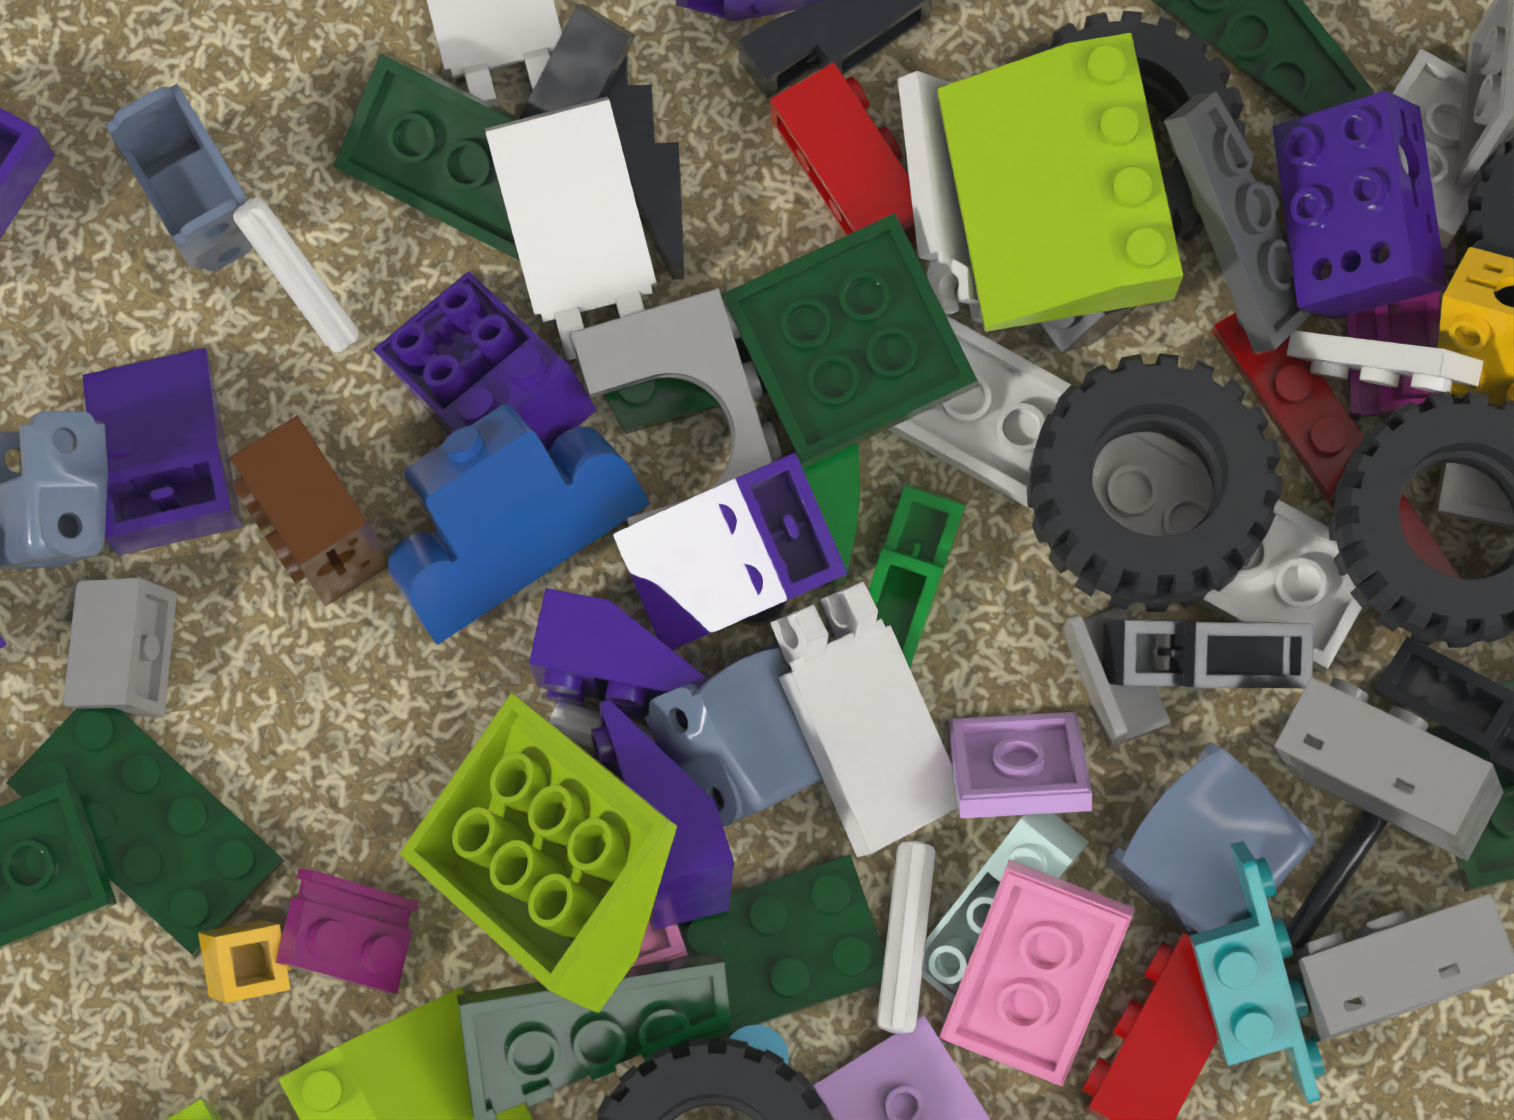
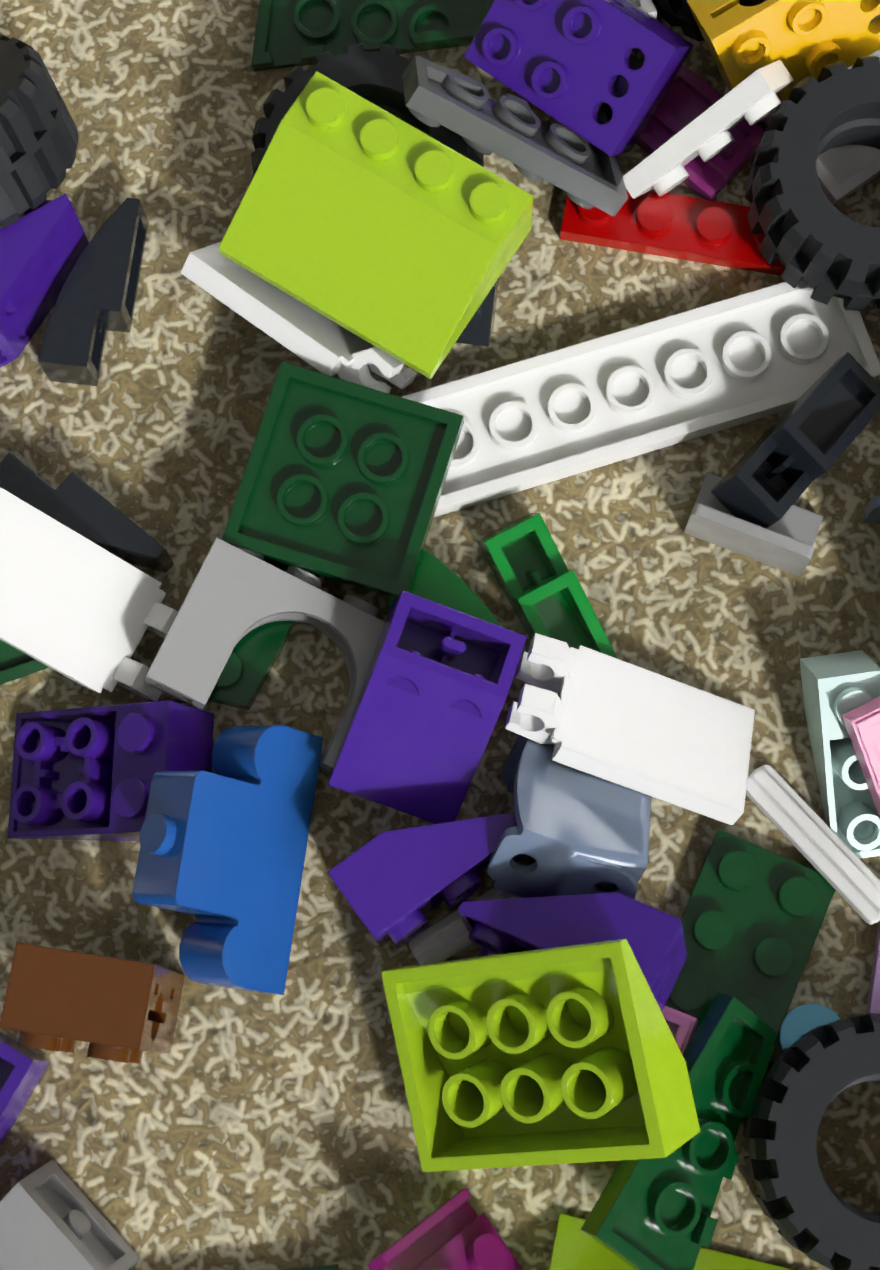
camera: 45 degrees left, 0 degrees up
(844, 151) = (194, 365): red brick -> none
(1019, 765) = (766, 648): lavender plate -> none
(1169, 403) = (662, 290): black tyre -> none

